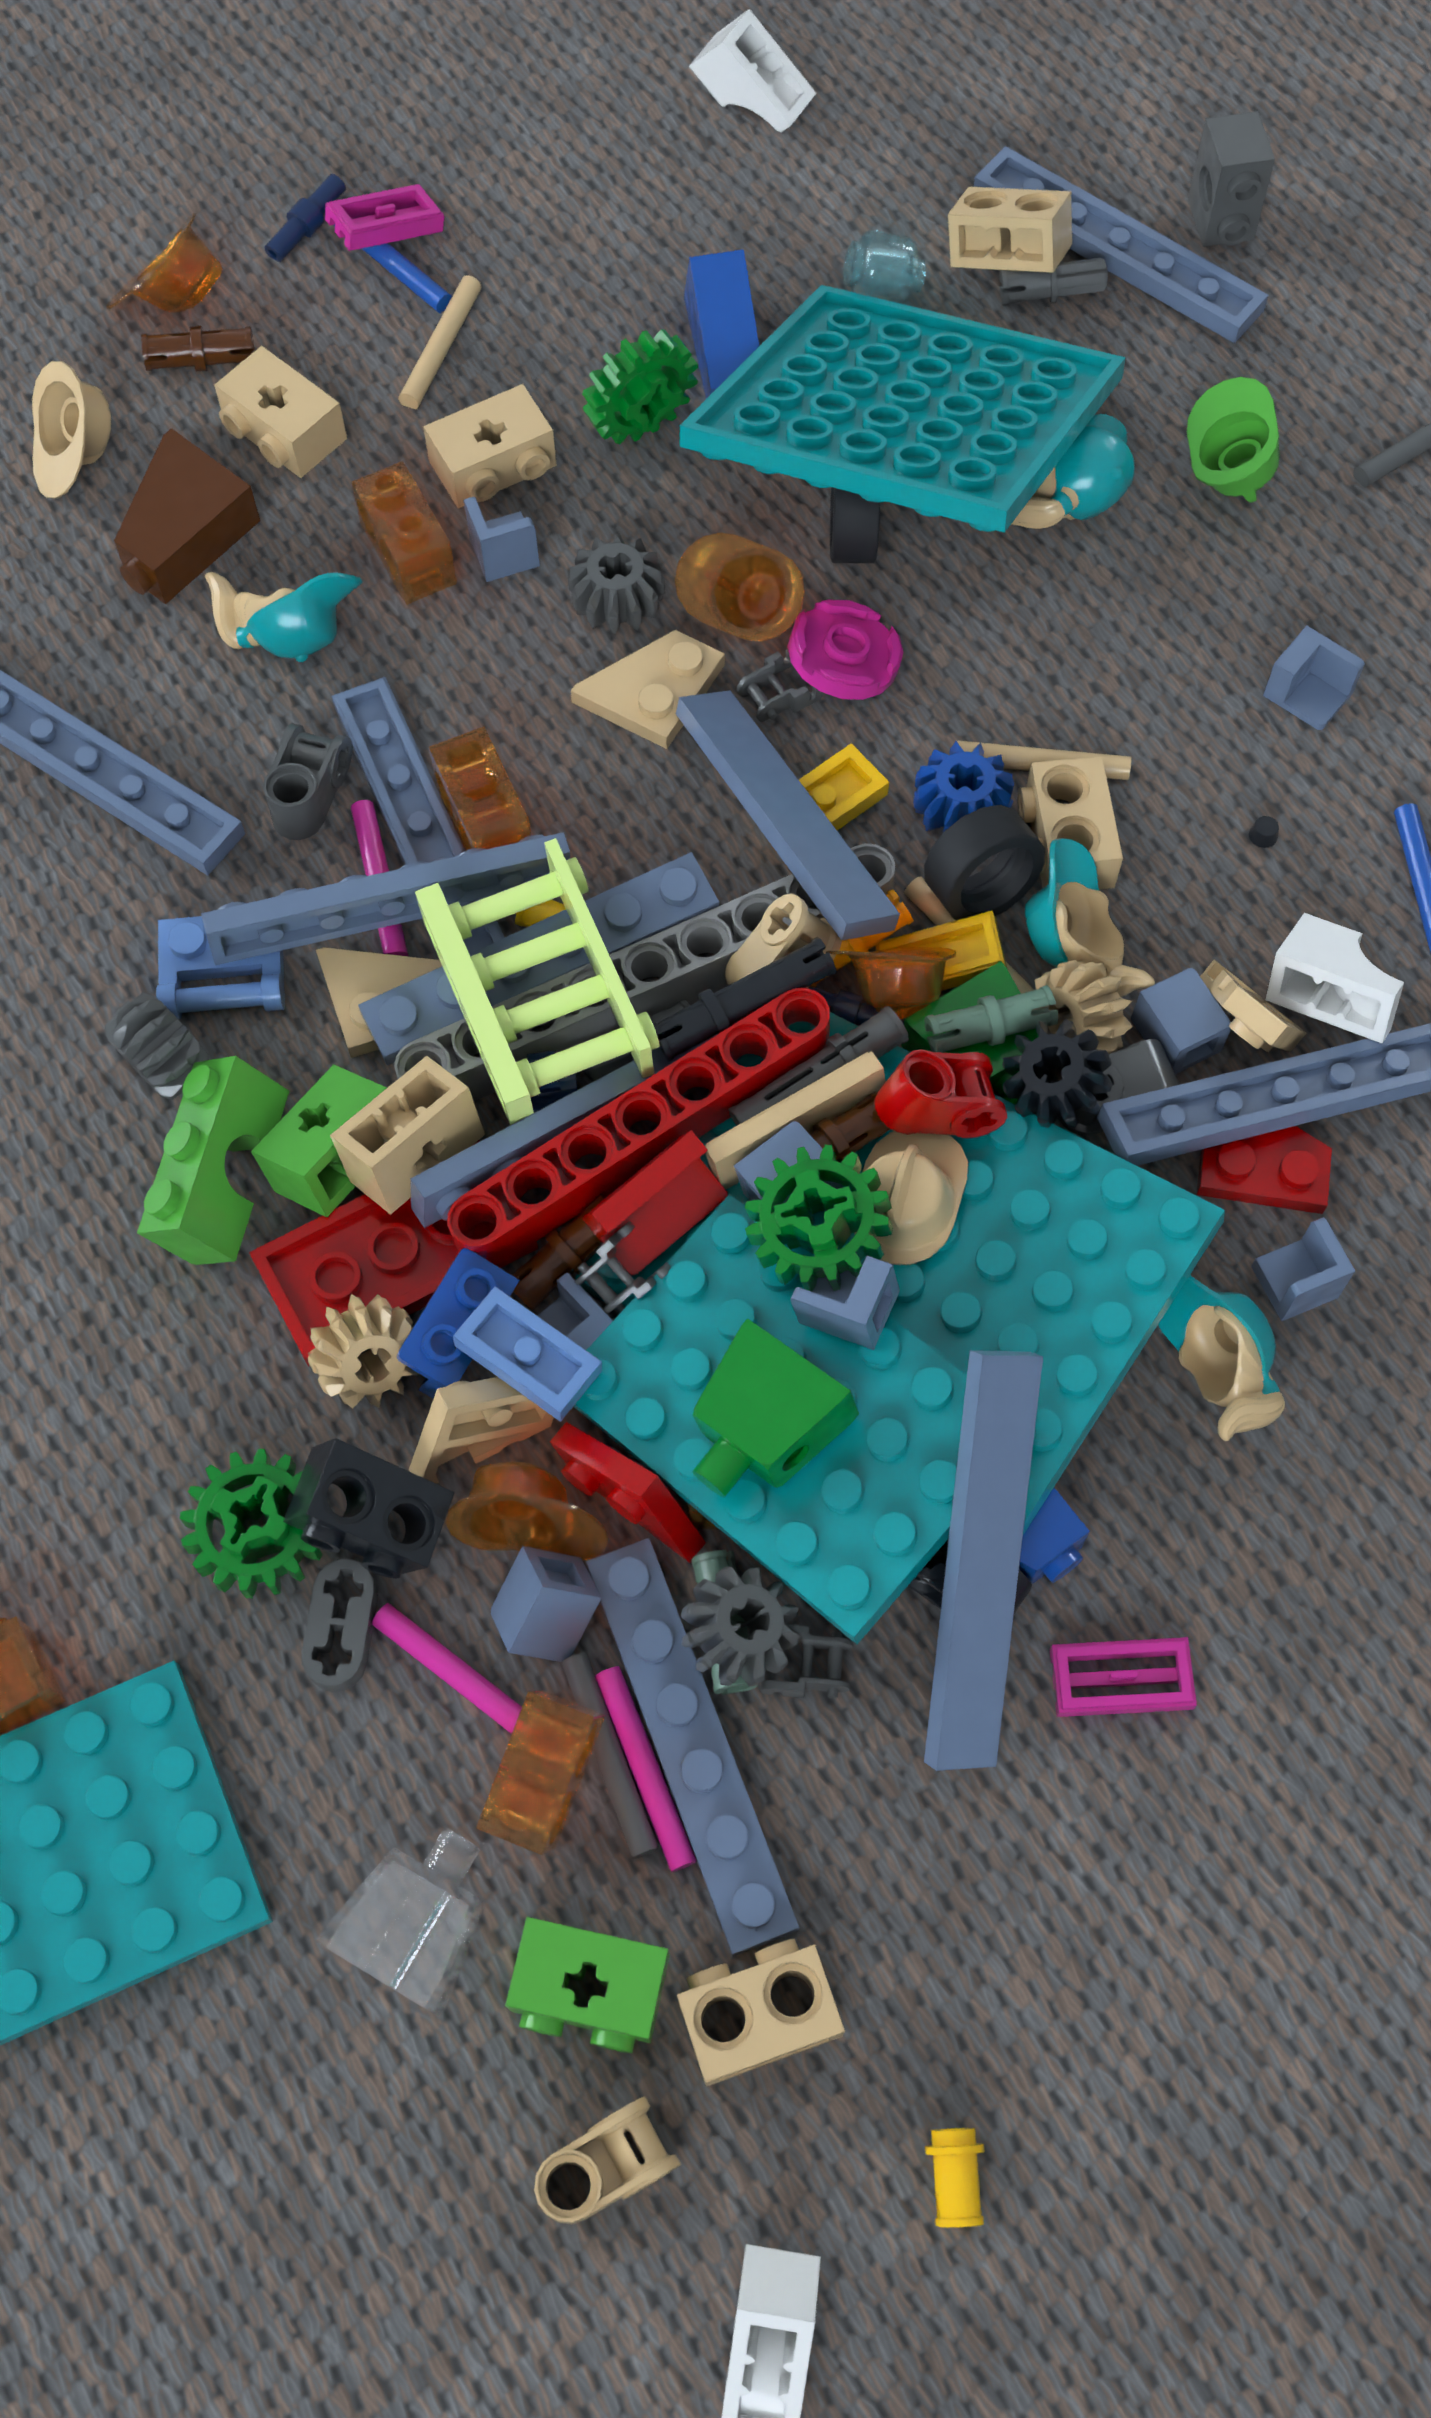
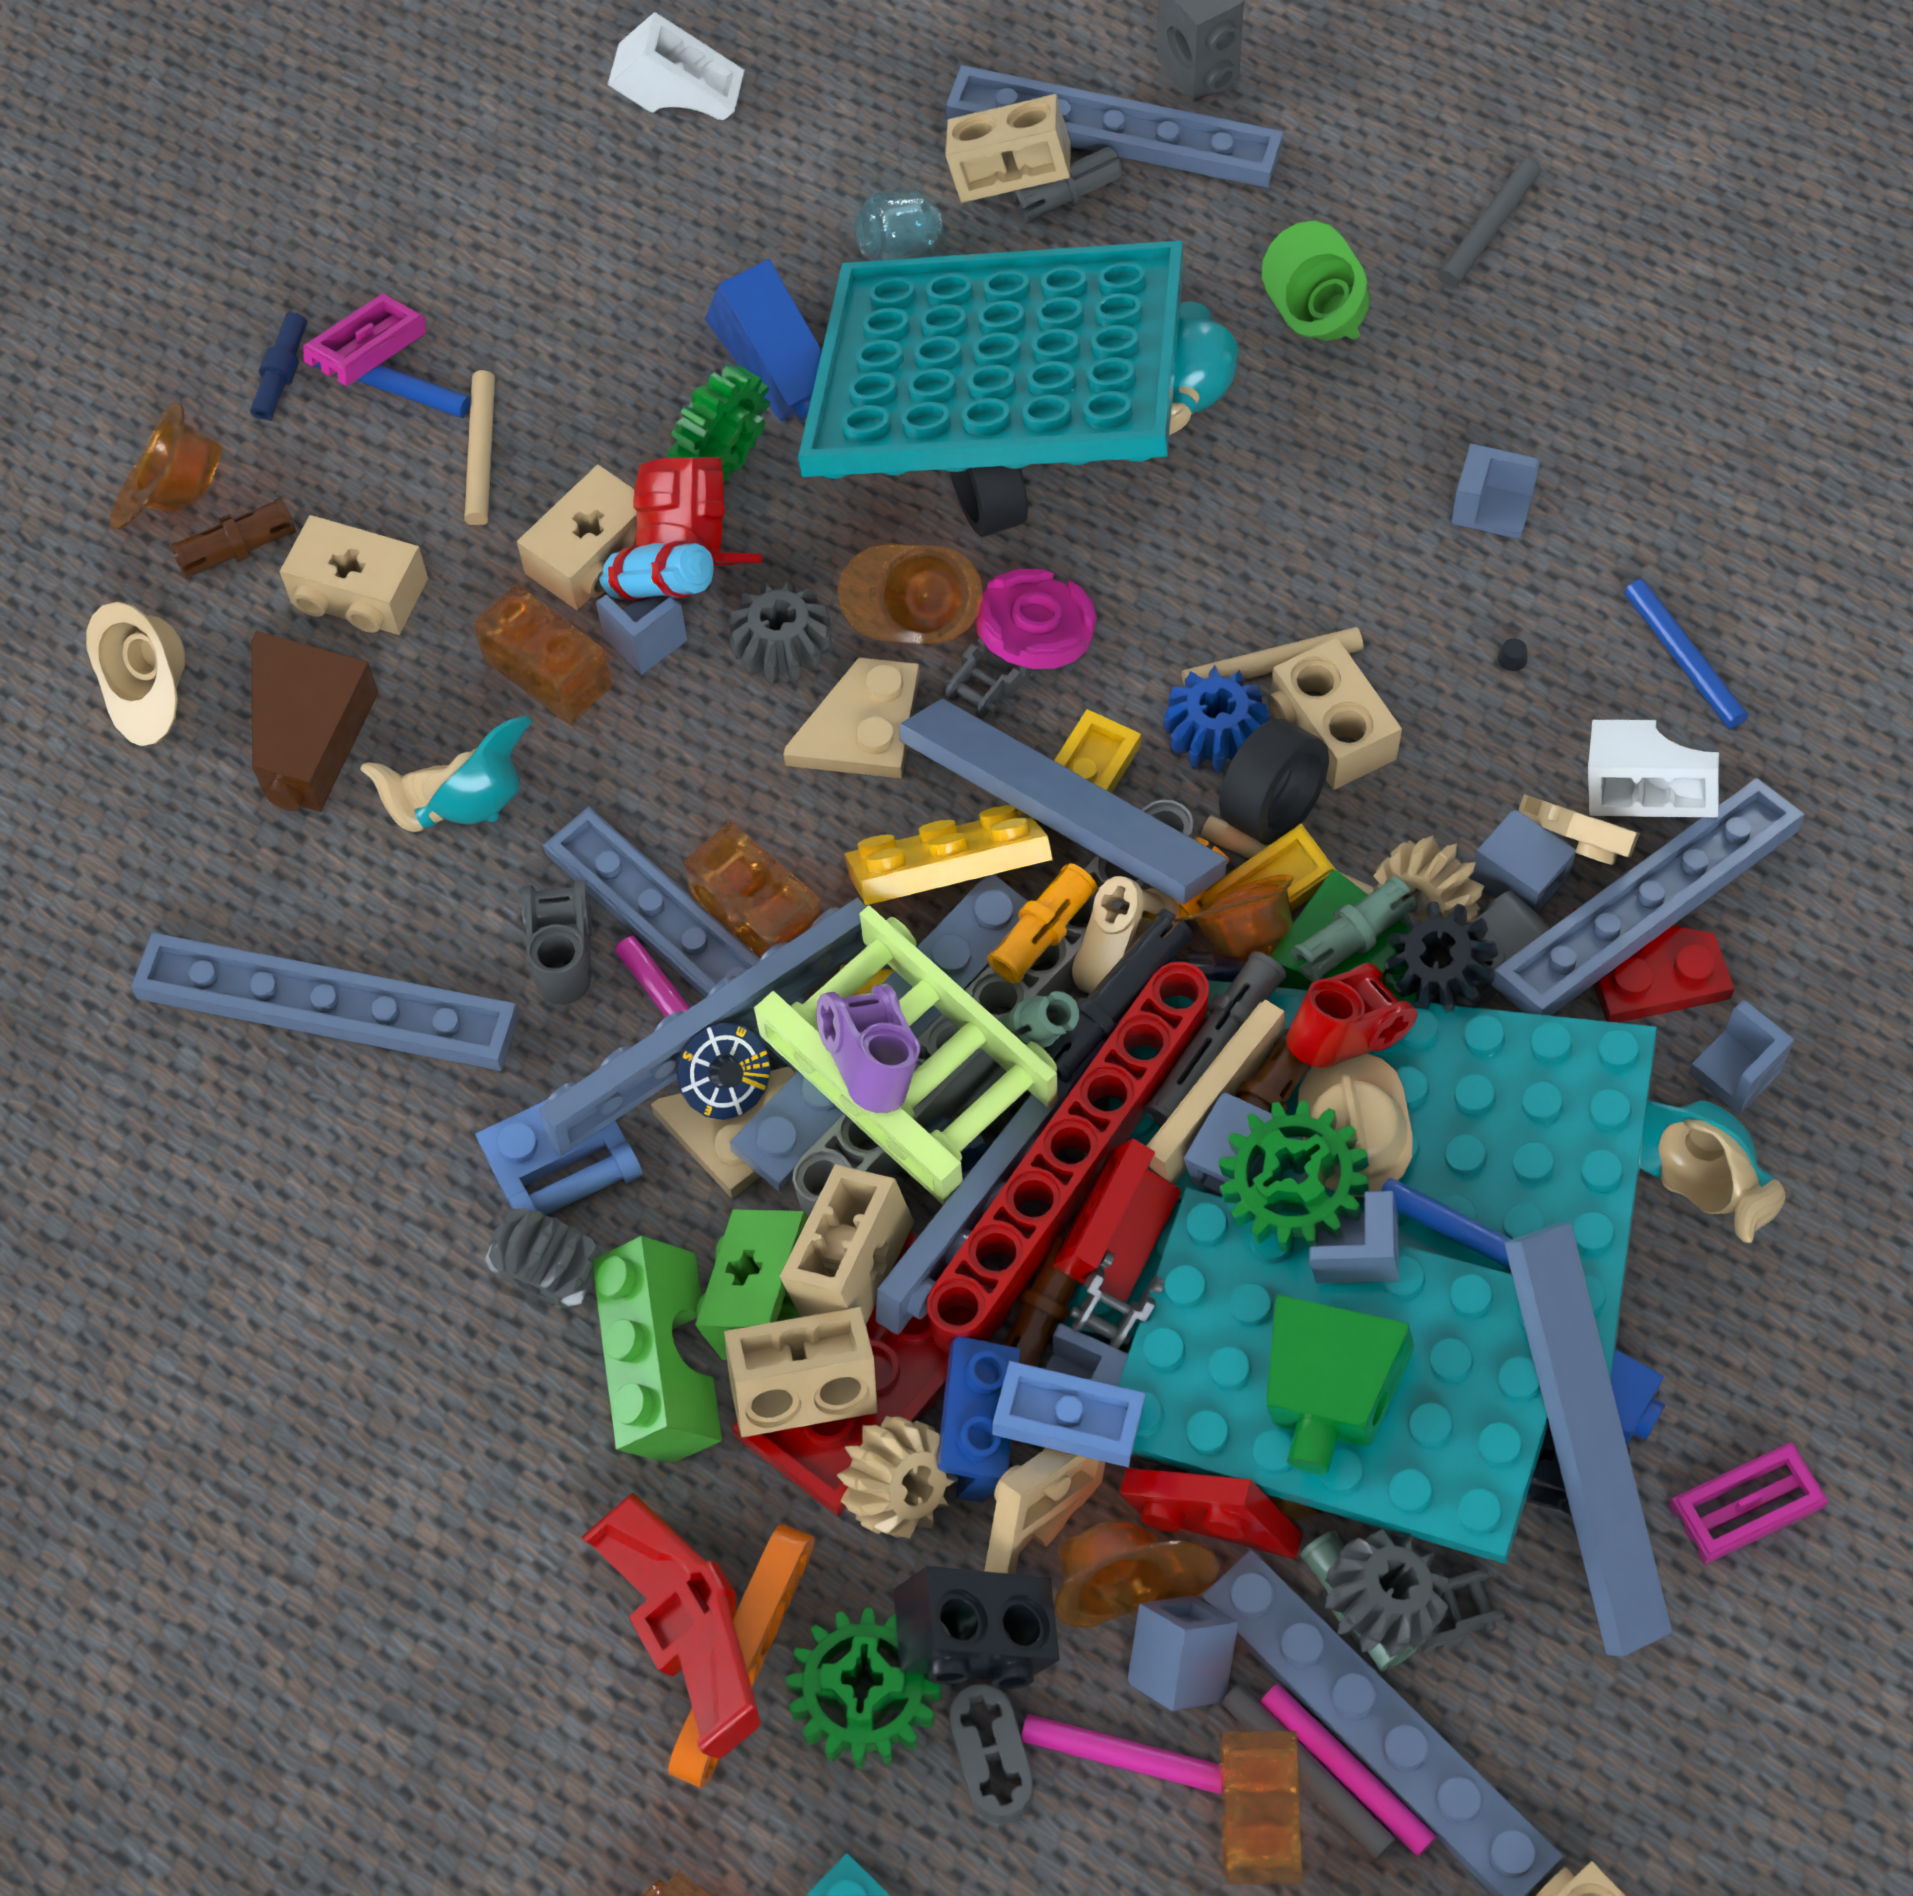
camera: 20 degrees left, 5 degrees down
(122, 1404) = (684, 1620): none -> red plate
(165, 1452) = (756, 1627): none -> orange beam
(315, 1226) = (801, 1372): none -> tan brick
(381, 941) = (723, 1071): none -> dark blue piece
(493, 962) = (870, 1046): none -> medium lavender piece
(559, 463) = (677, 532): none -> red piece
(662, 824) = (946, 854): none -> yellow plate
(663, 984) = (1032, 1014): none -> sand green pin
(746, 897) = (1042, 923): none -> light orange pin
(941, 1306) = (1449, 1222): none -> blue bar
(1073, 919) = (1379, 808): hair -> none

